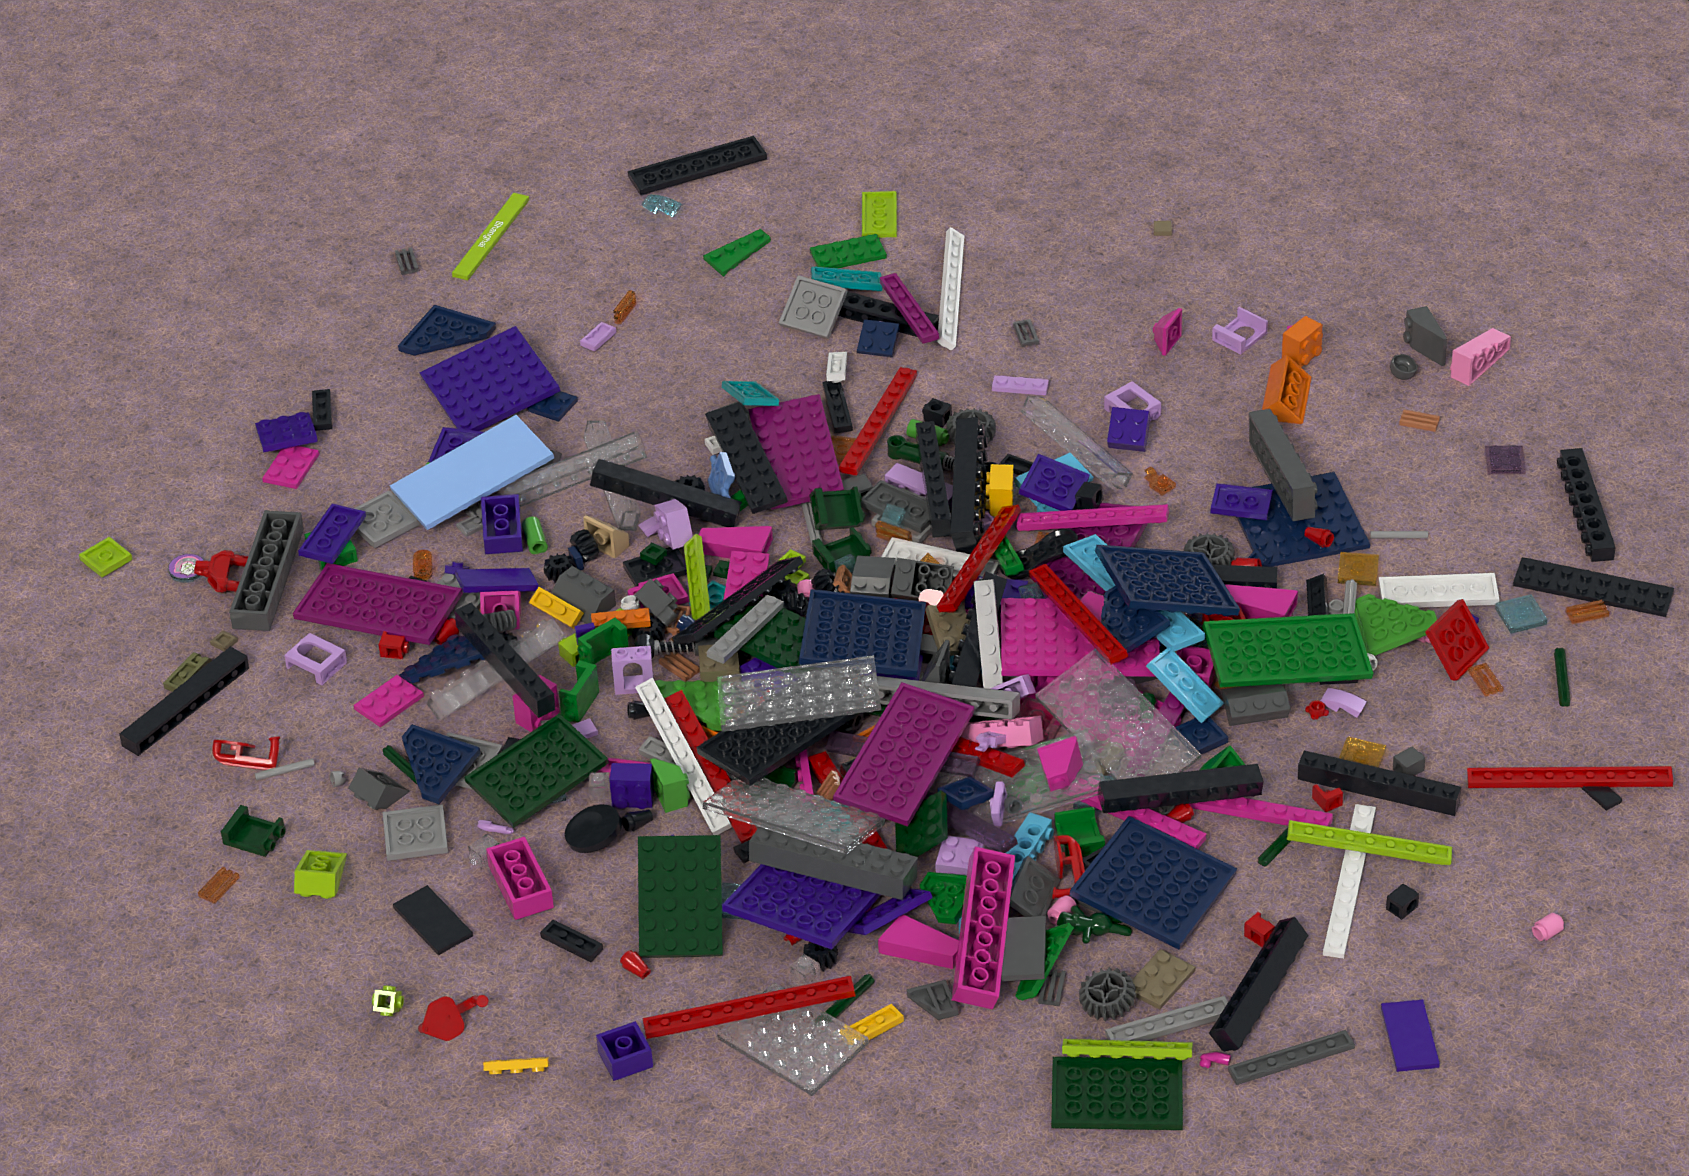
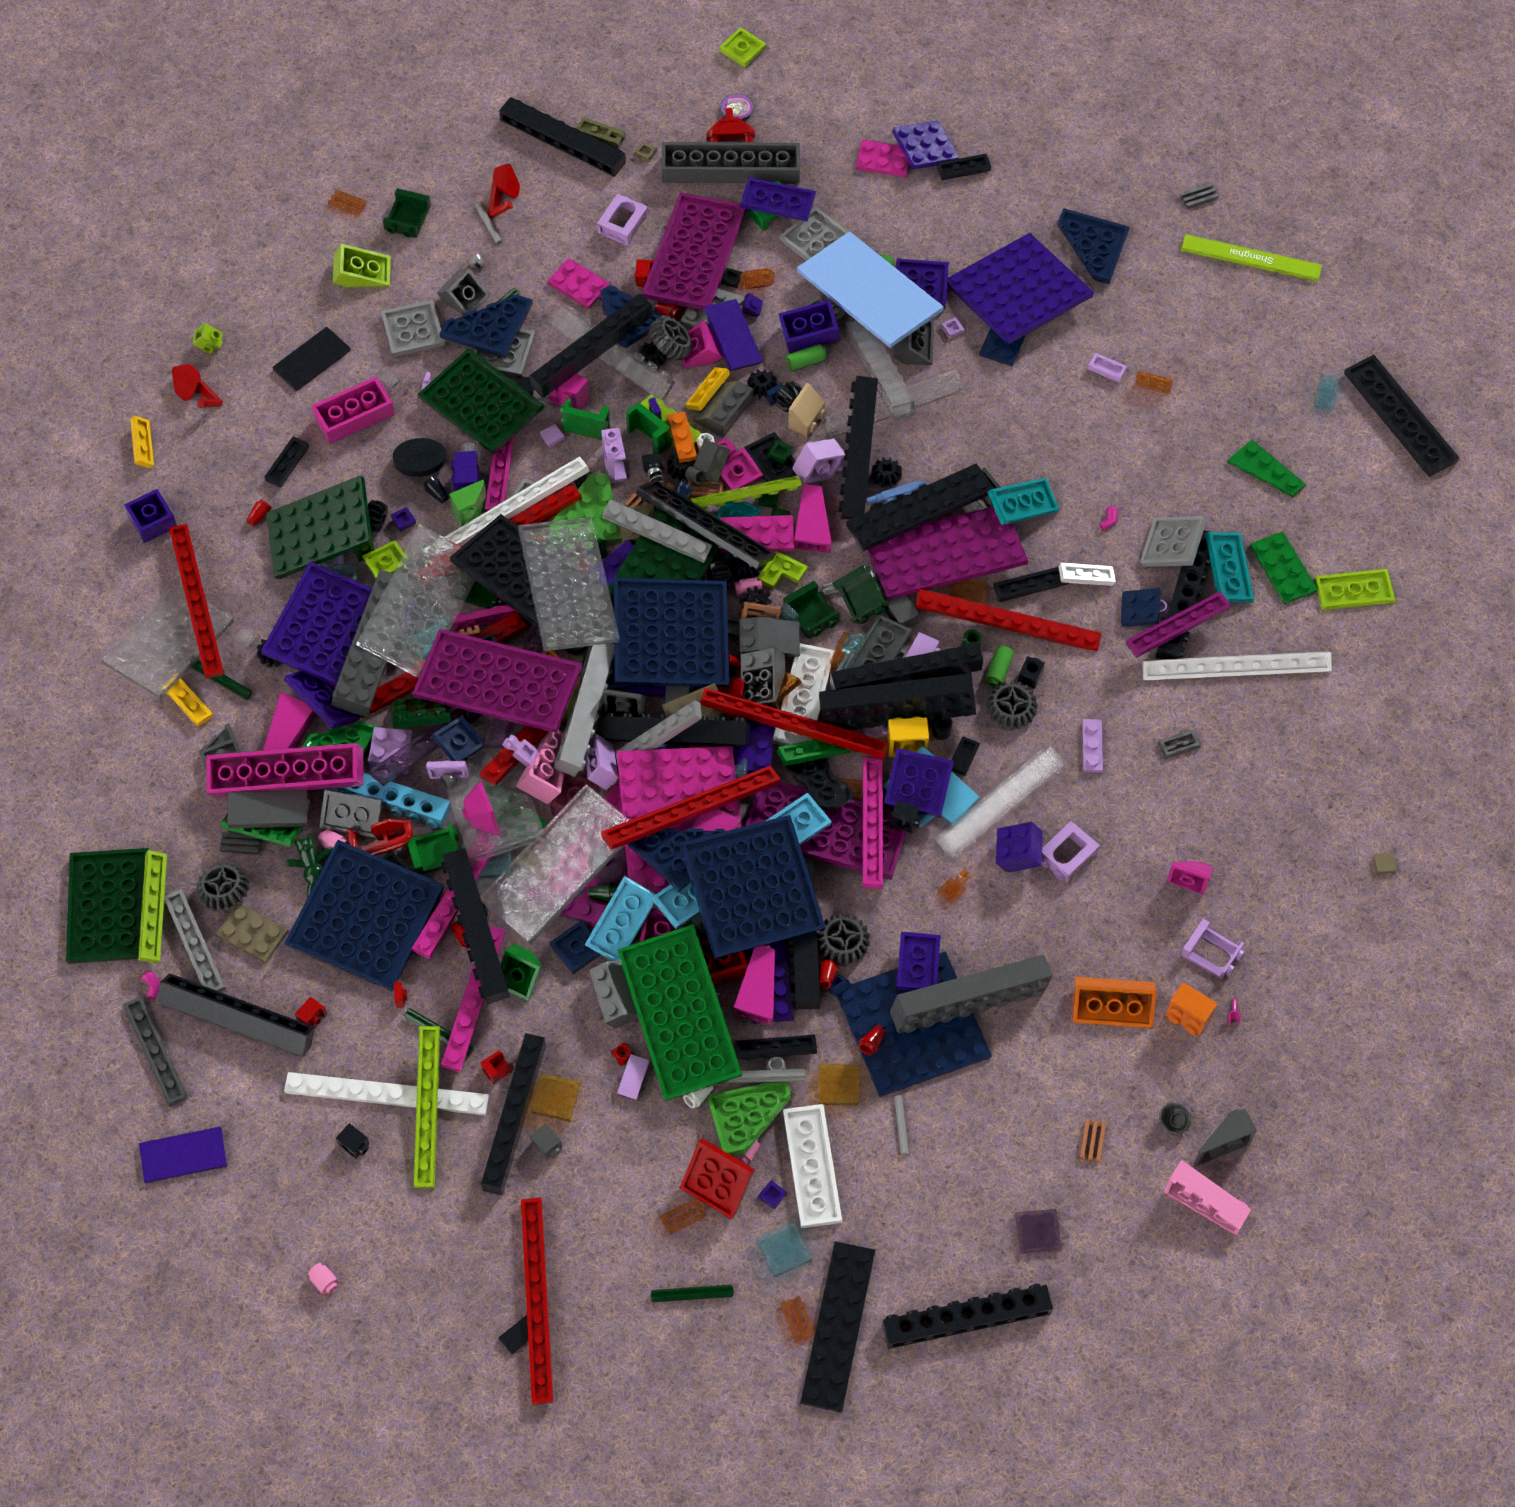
camera: 80 degrees right, 20 degrees up
(732, 856) = (384, 558): none -> lime plate
(767, 348) = (1112, 517): none -> dark pink arm
(1244, 863) = (400, 994): none -> red plate

